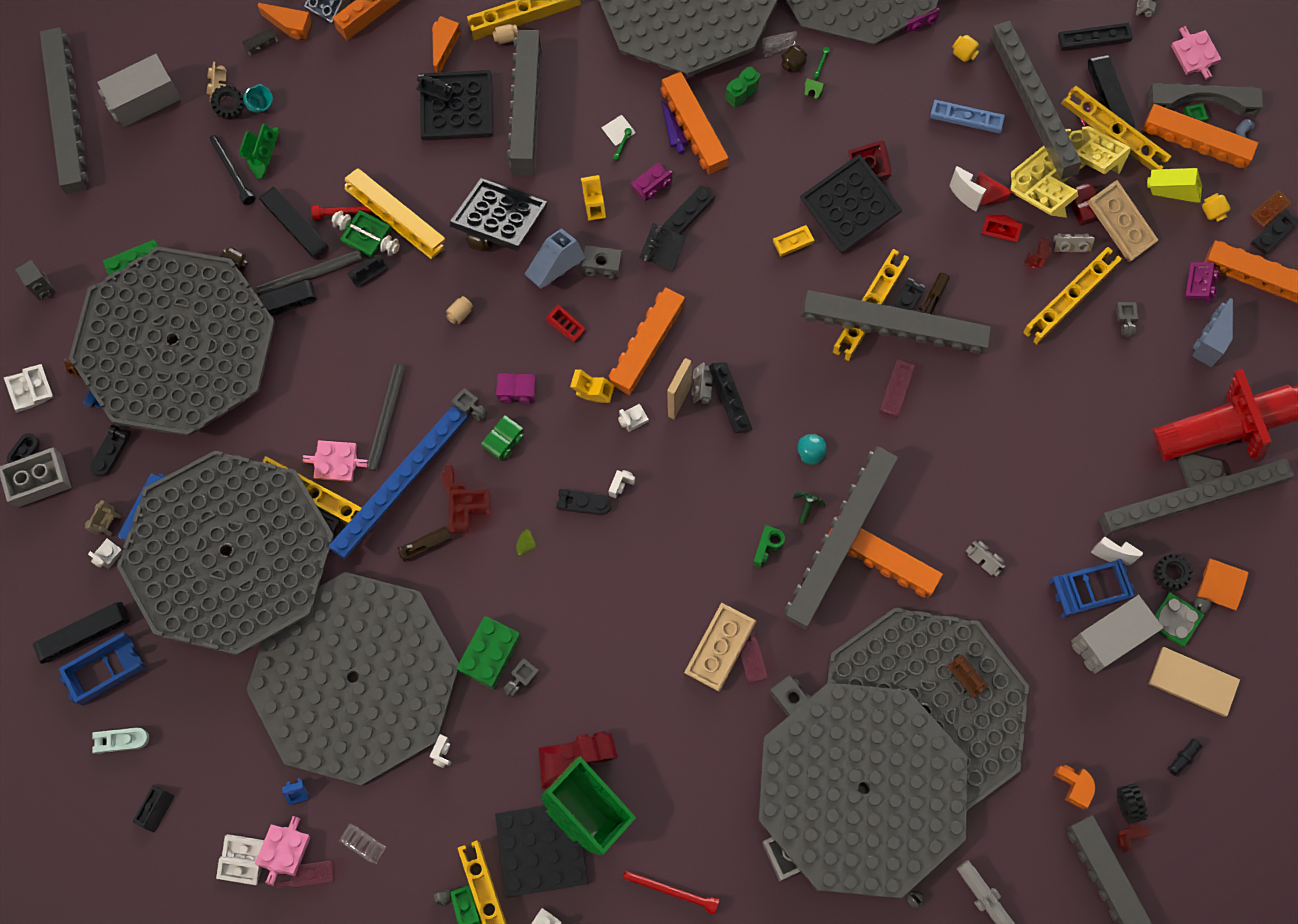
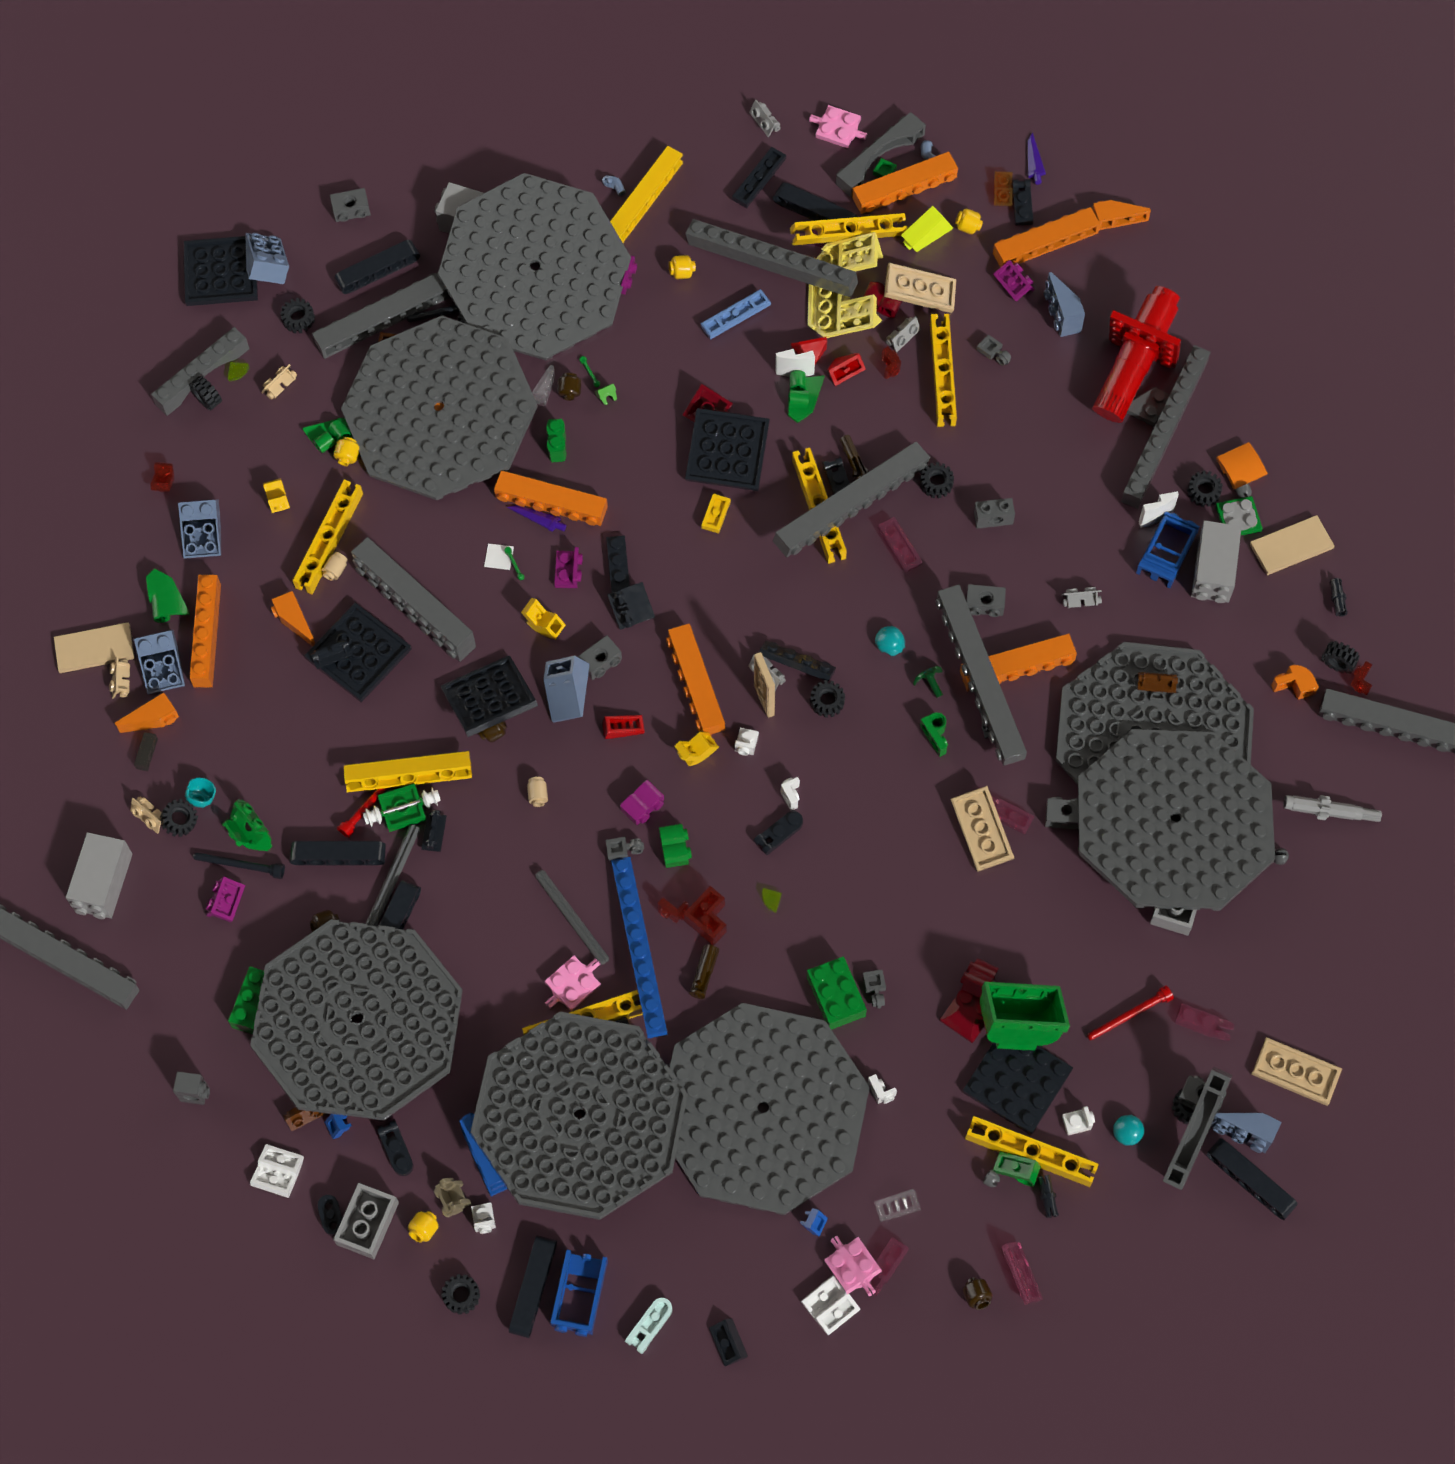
camera: 50 degrees left, 5 degrees down
(28, 580) = (469, 1303): none -> black tyre
(64, 519) = (423, 1226): none -> yellow head
(195, 183) = (225, 899): none -> magenta bracket
(720, 434) = (825, 709): none -> black tyre
(910, 478) = (994, 595): none -> dark grey brick
(950, 217) = (803, 394): none -> green panel
(964, 369) = (933, 489): none -> black tyre
(990, 433) = (994, 513): none -> dark grey brick

